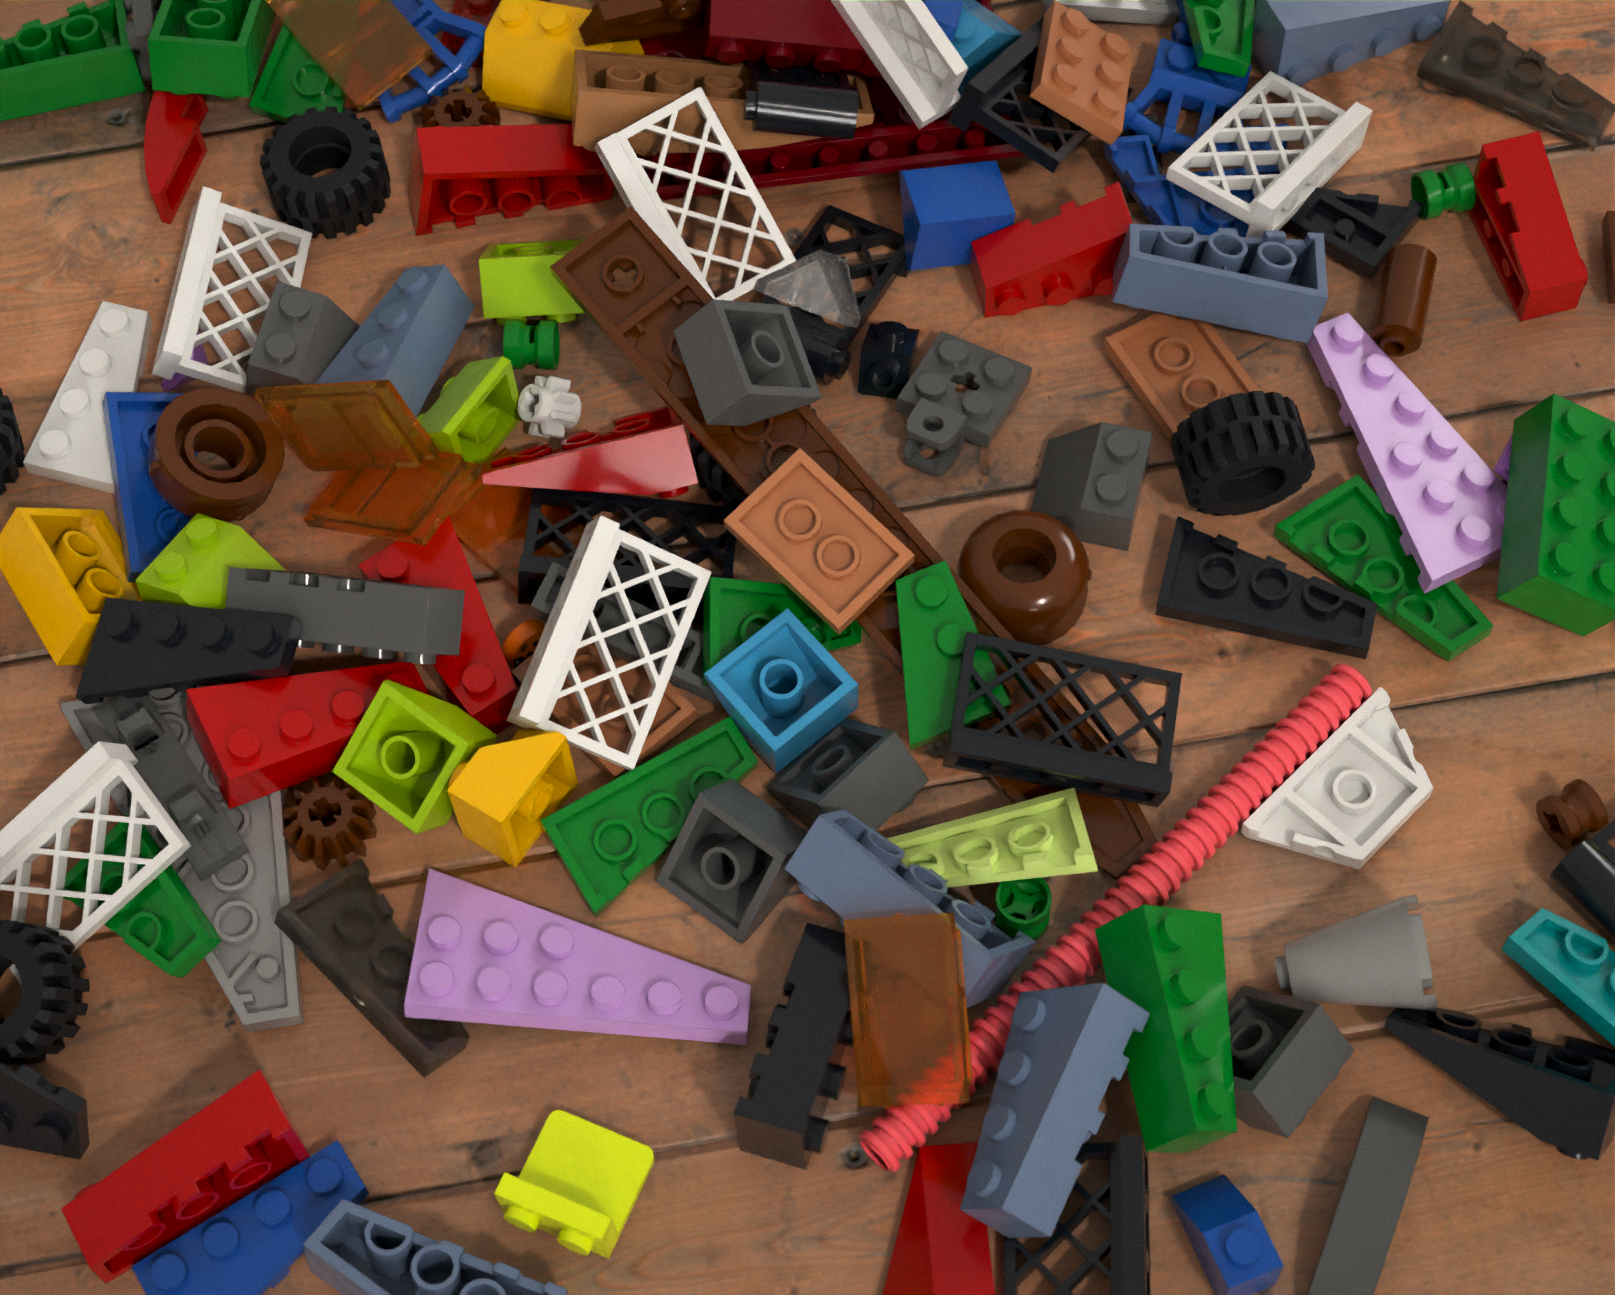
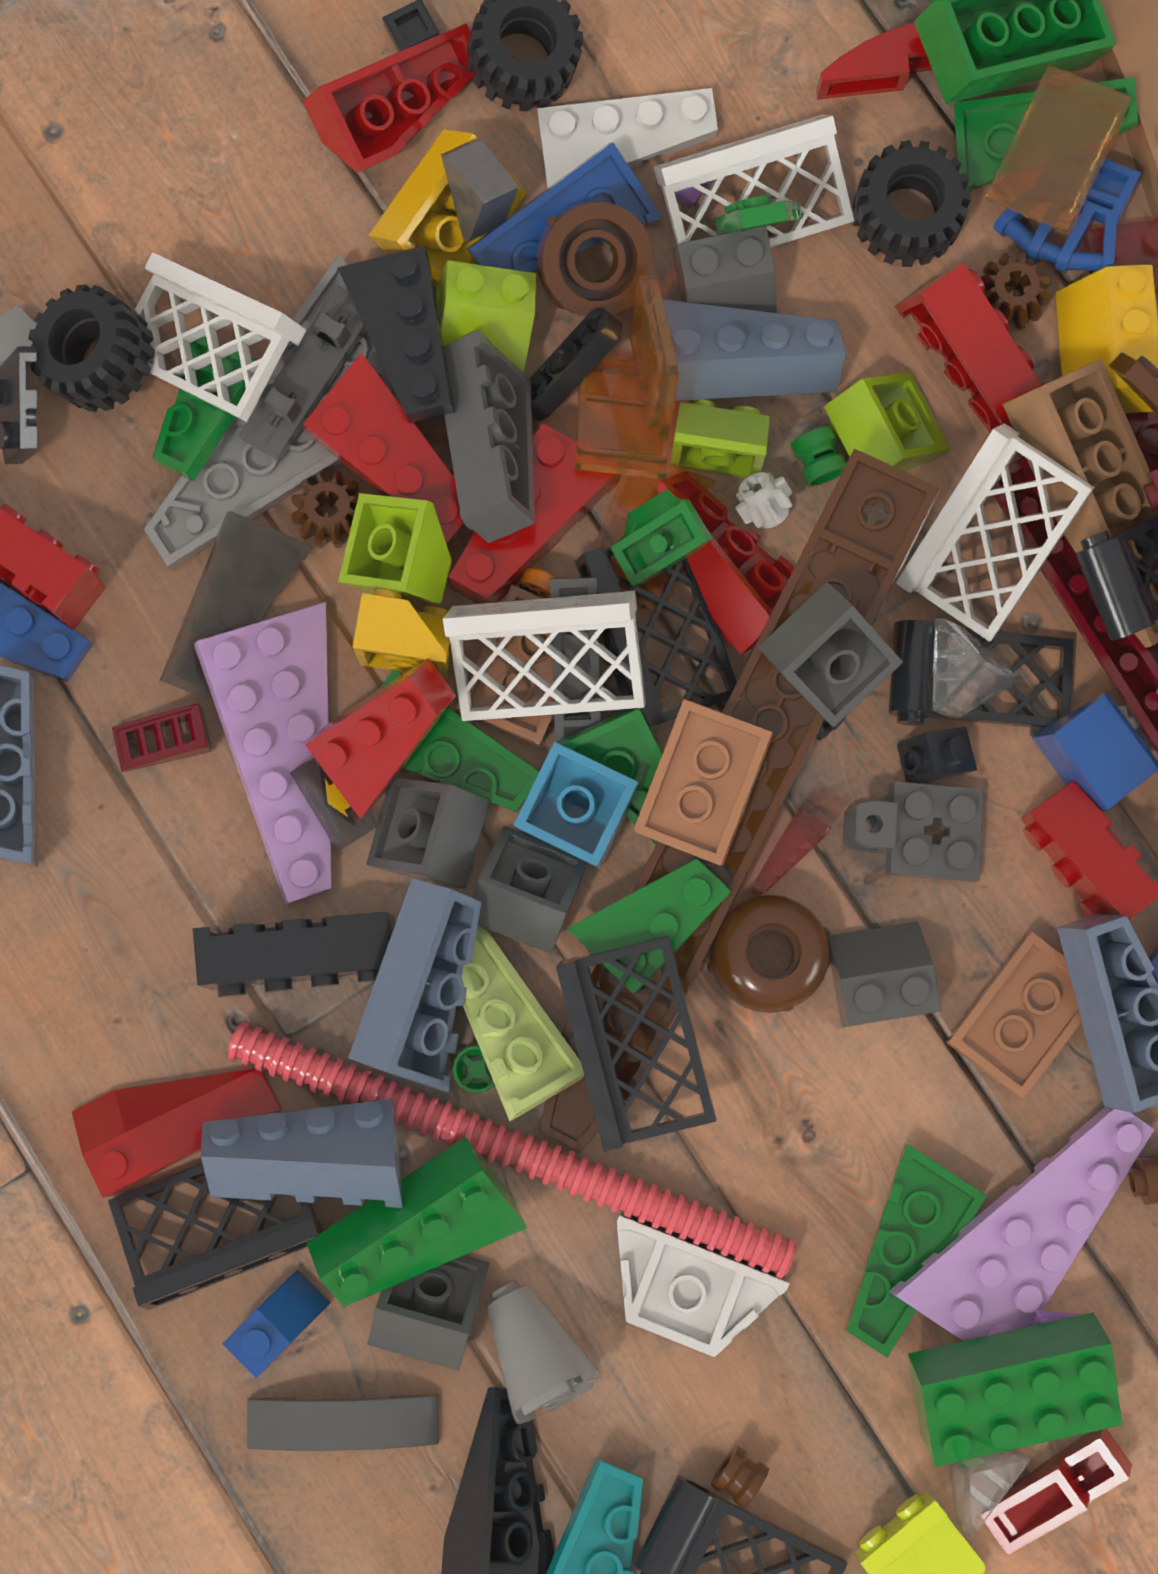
camera: 60 degrees right, 20 degrees up
(76, 527) = (478, 187): none -> flat silver slope
(263, 271) = (756, 213): none -> green wing
(309, 485) = (573, 361): none -> black beam
(499, 1055) = (199, 745): none -> dark red slope
(537, 495) = (659, 537): none -> green slope
(577, 1184) = (123, 830): neon yellow bracket -> none
(610, 841) = (378, 735): none -> red wedge
(653, 939) = (330, 806): none -> clear smoke tile
(908, 1010) = (334, 1022): clear orange piece -> none
(916, 501) = (797, 840): none -> clear red slope
(1236, 591) = (836, 1134): black wing -> none
(1242, 453) = (952, 1094): black tyre -> none

